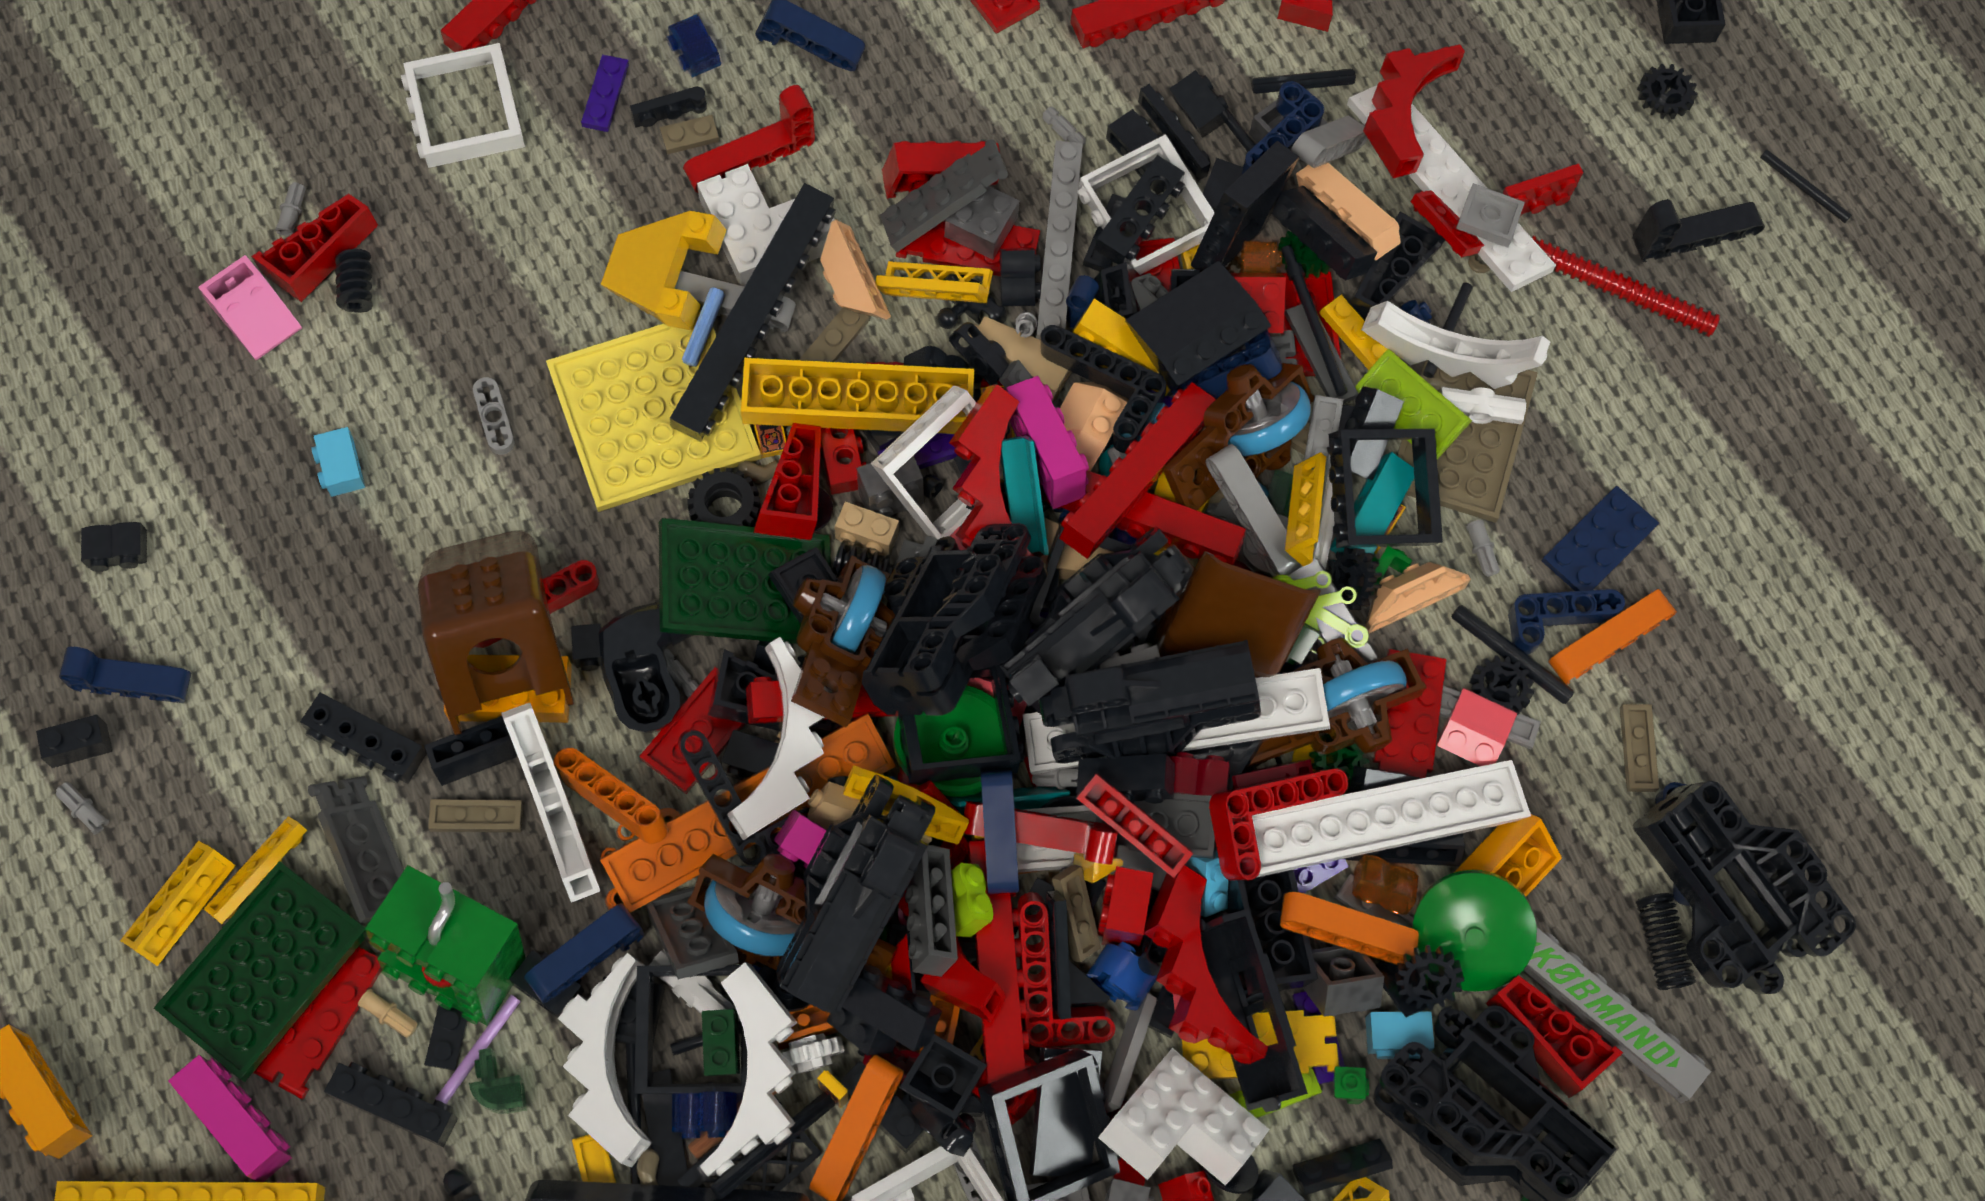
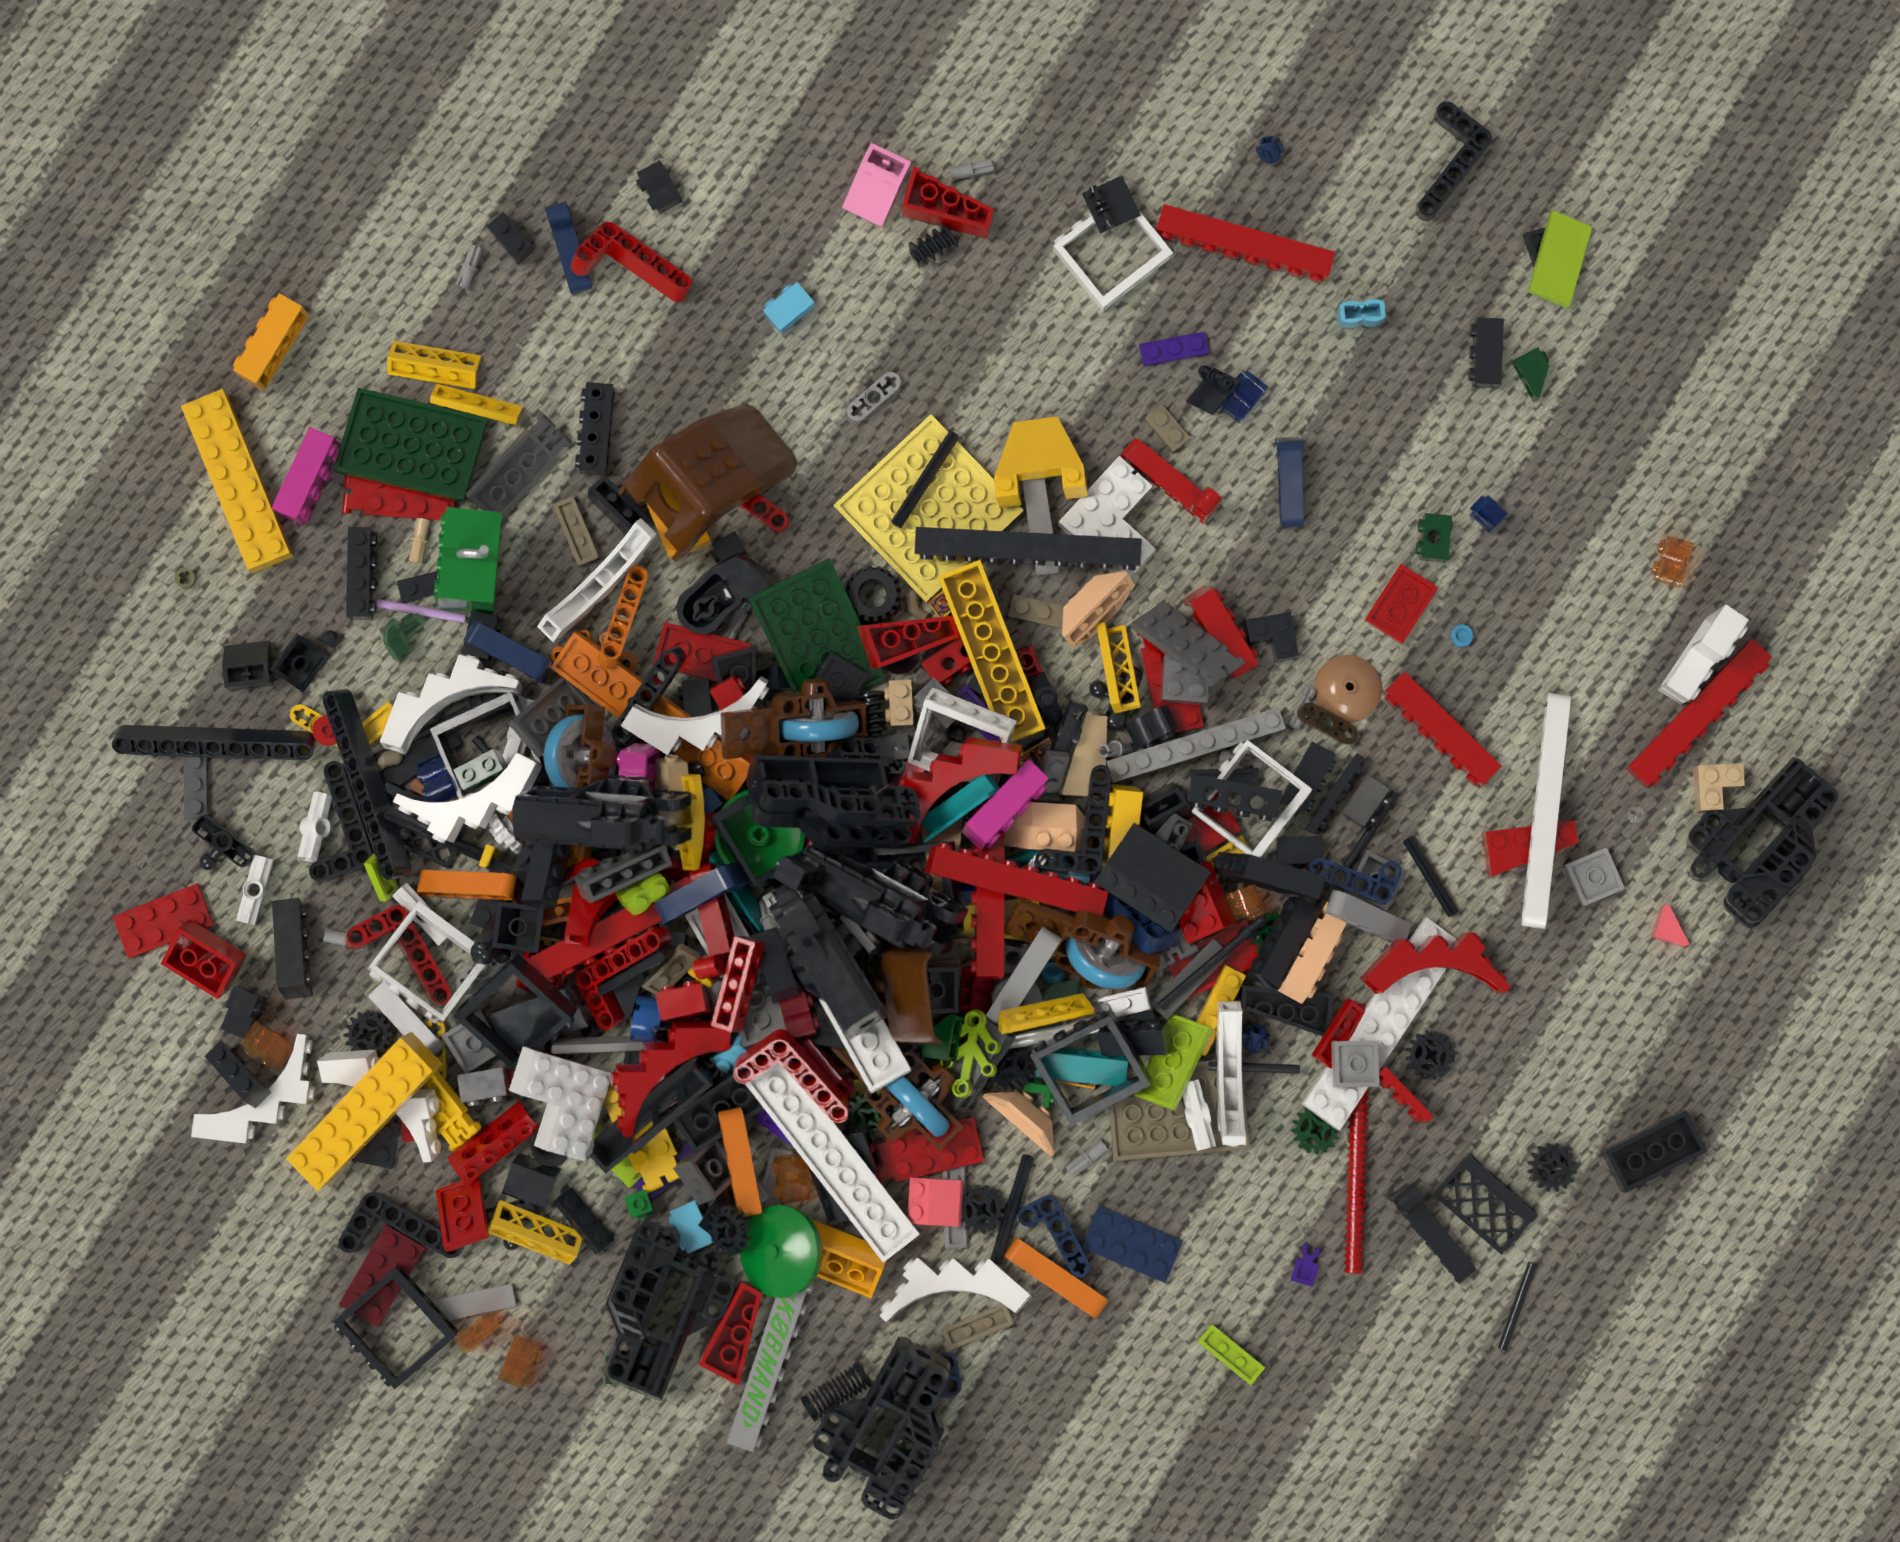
camera: 70 degrees right, 15 degrees up
(182, 604) = (633, 255): none -> red beam
(411, 79) = (1111, 204): none -> black hinge
(618, 395) = (925, 479): none -> black axle
(669, 106) = (1181, 404): black plate -> none
(670, 65) = (1212, 390): none -> black hinge
(703, 327) = (1004, 515): light blue axle -> none
(974, 113) = (1277, 630): none -> black brick
(1064, 90) = (1332, 691): none -> medium nougat dish
(1080, 298) = (1151, 782): dark blue piece -> none
(1084, 221) = (1246, 761): none -> light grey axle
(1088, 117) = (1316, 710): none -> dark brown beam
(1107, 1055) = (592, 1029): none -> black hinge
(1497, 159) = (1435, 1064): none -> black gear
(1536, 302) = (1305, 1134): none -> dark green gear
(1567, 783) = (924, 1282): none -> white arch
(1678, 147) = (1499, 1189): none -> black fence
(1693, 373) = (1305, 1270): none -> dark purple plate
(1765, 487) = (1231, 1354): none -> lime plate

